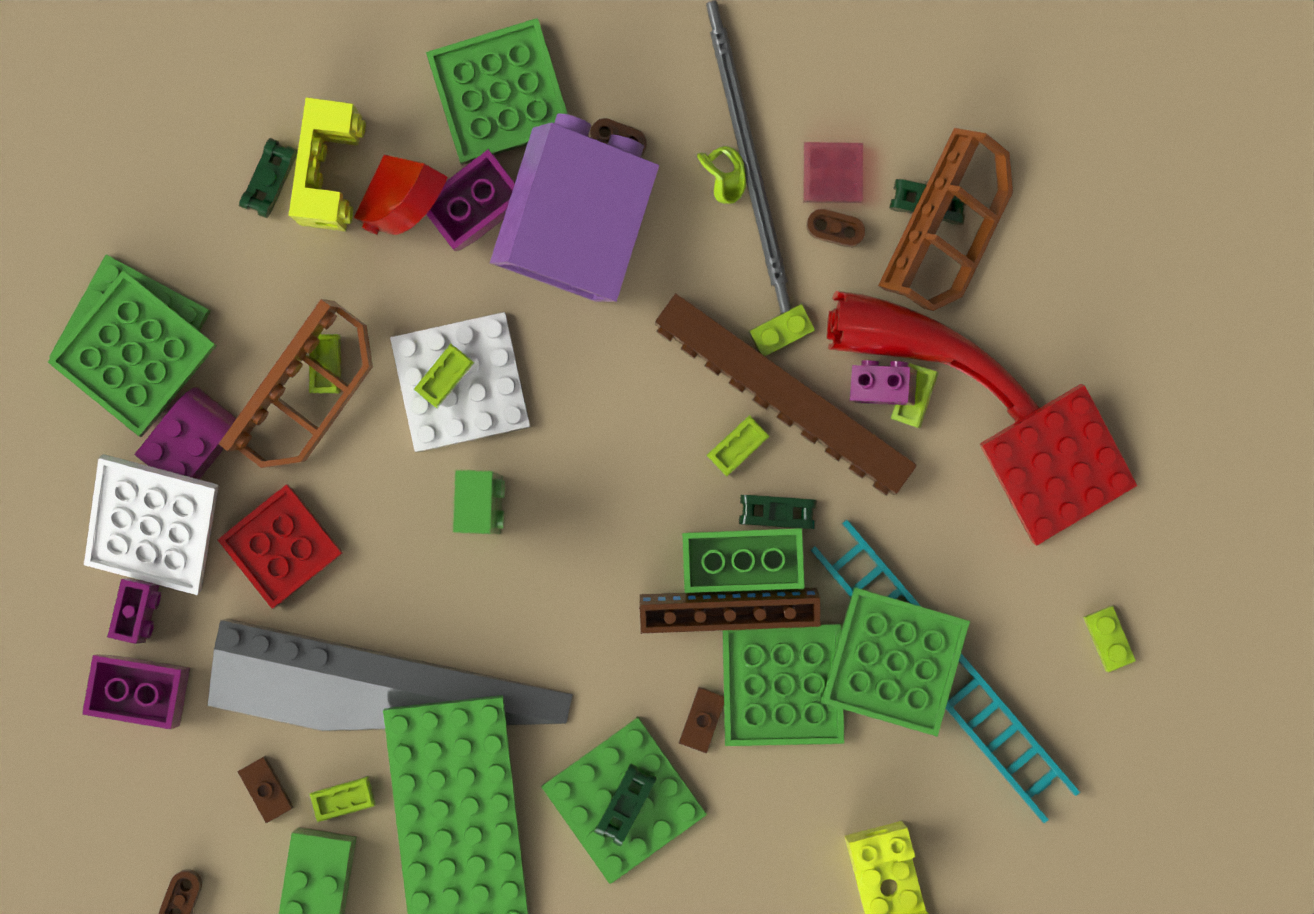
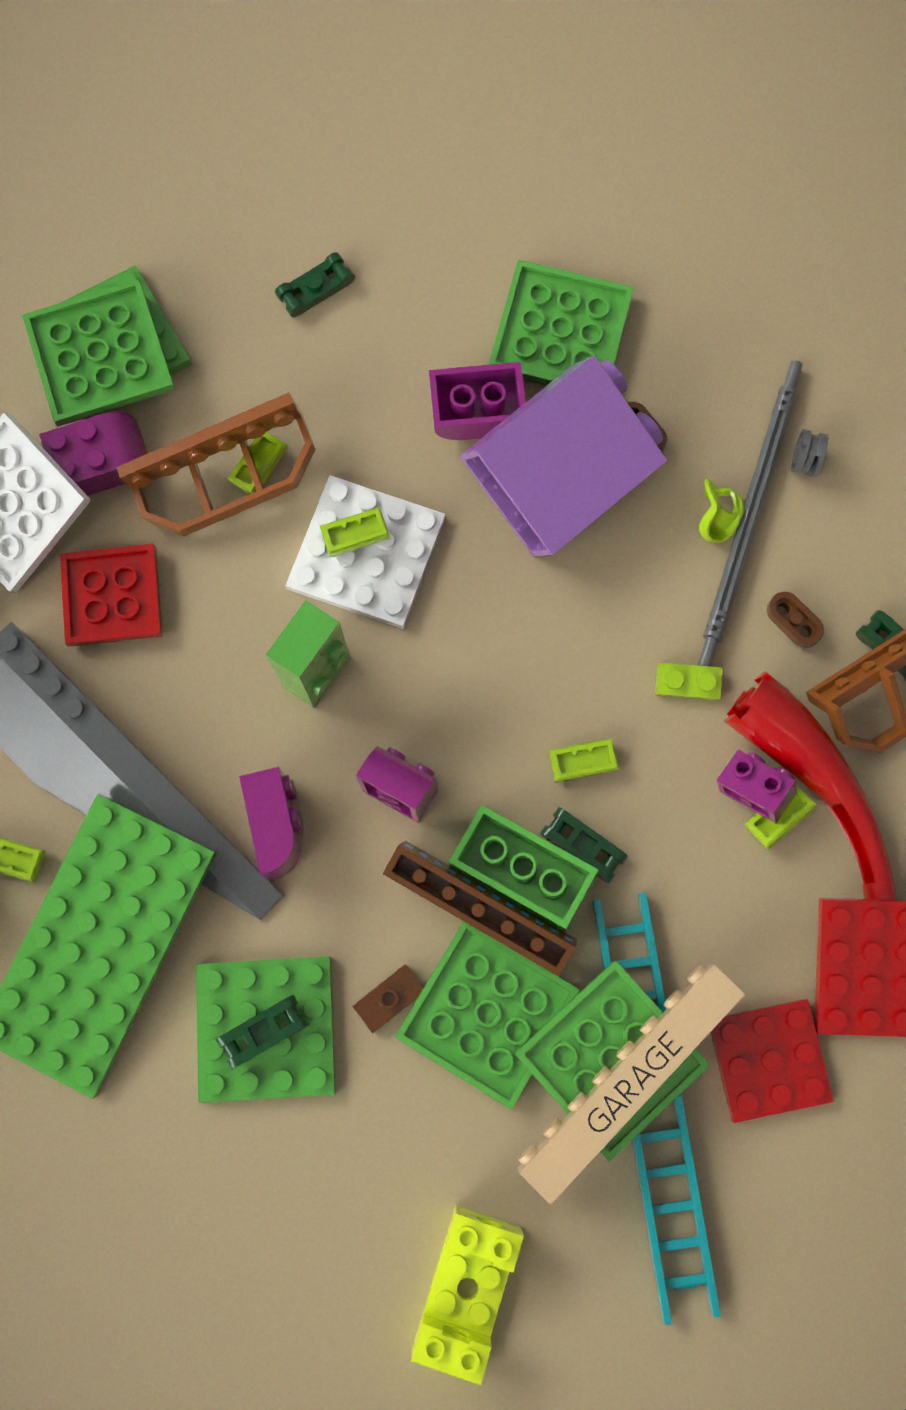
camera: 30 degrees right, 10 degrees down
(331, 123) = (388, 262): neon yellow plate -> none
(399, 195) = (417, 355): red brick -> none
(530, 645) = (273, 821): none -> magenta brick
(609, 556) = (397, 783): none -> magenta brick
(767, 79) = (809, 453): none -> dark grey wheel
(785, 395) = (657, 742): reddish brown brick -> none
(832, 172) = (821, 569): clear pink plate -> none
(918, 671) = (629, 1083): none -> tan brick
(1012, 586) = (770, 1061): none -> red plate
(1109, 639) = (838, 1175): lime plate -> none

